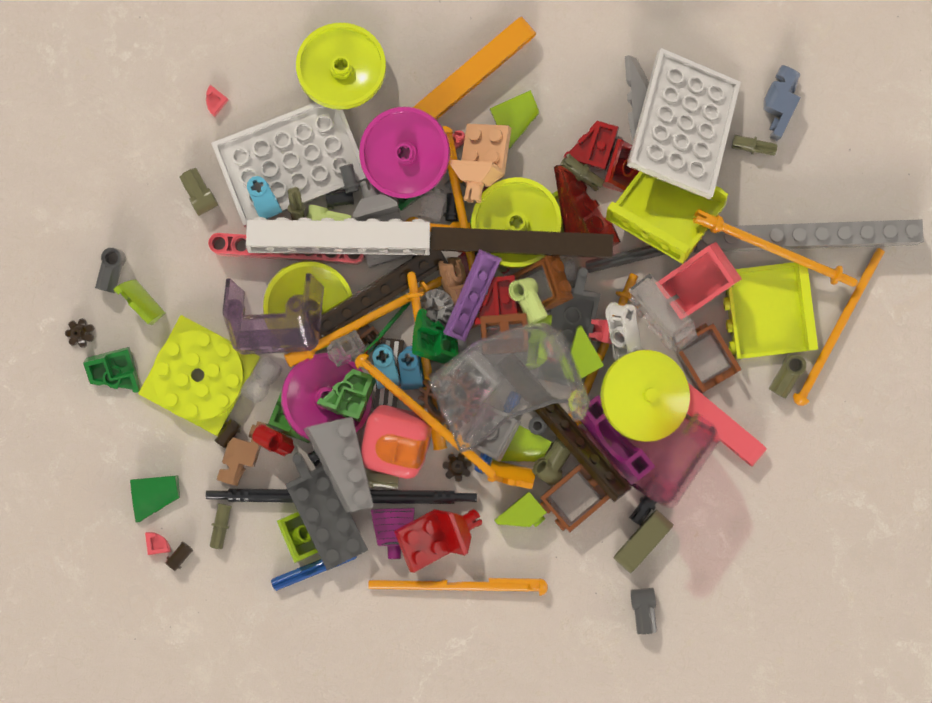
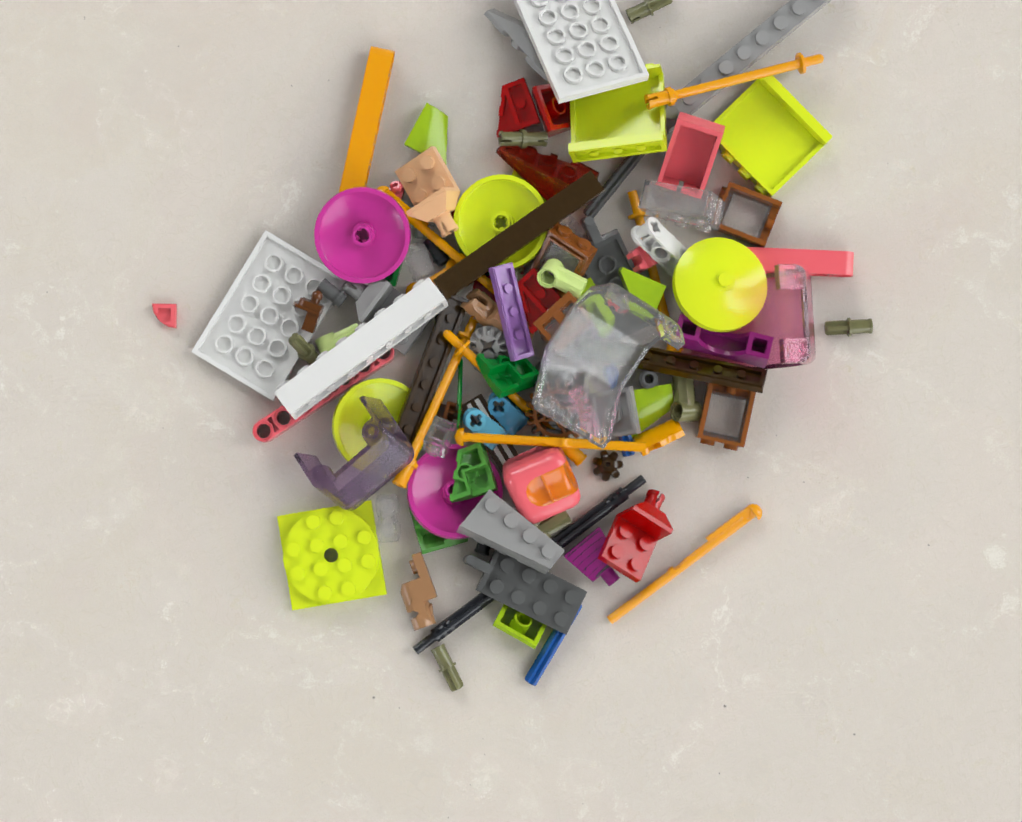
camera: 40 degrees left, 0 degrees up
(83, 333) = (207, 595): dark brown plant -> none
(108, 272) = (189, 527): dark grey piece -> none
(113, 369) = (255, 606): green slope -> none
(140, 301) = (234, 530): lime slope -> none
(153, 494) = (370, 684): green slope -> none
(156, 543) = (405, 723): coral tile -> none
(179, 556) = (432, 719): dark brown pin -> none
(200, 196) = (216, 403): olive piece -> none
(228, 432) = (393, 584): dark brown pin -> none
(265, 201) = (275, 366): medium azure piece -> none
(273, 440) = (437, 561): red piece -> none
(325, 182) = (313, 308): none -> reddish brown piece
(339, 199) = (335, 317): black pin -> none
(340, 66) = (251, 203): neon yellow dish -> none
(523, 513) = (692, 460): lime slope -> none
(643, 510) = (789, 382): black pin -> none
(643, 541) = (810, 408): olive beam -> none
(643, 604) = (850, 459): dark grey piece -> none
(719, 502) = (848, 327): none -> olive axle
(786, 377) = (824, 180): olive piece -> none
(801, 398) = (849, 188): light orange bar -> none

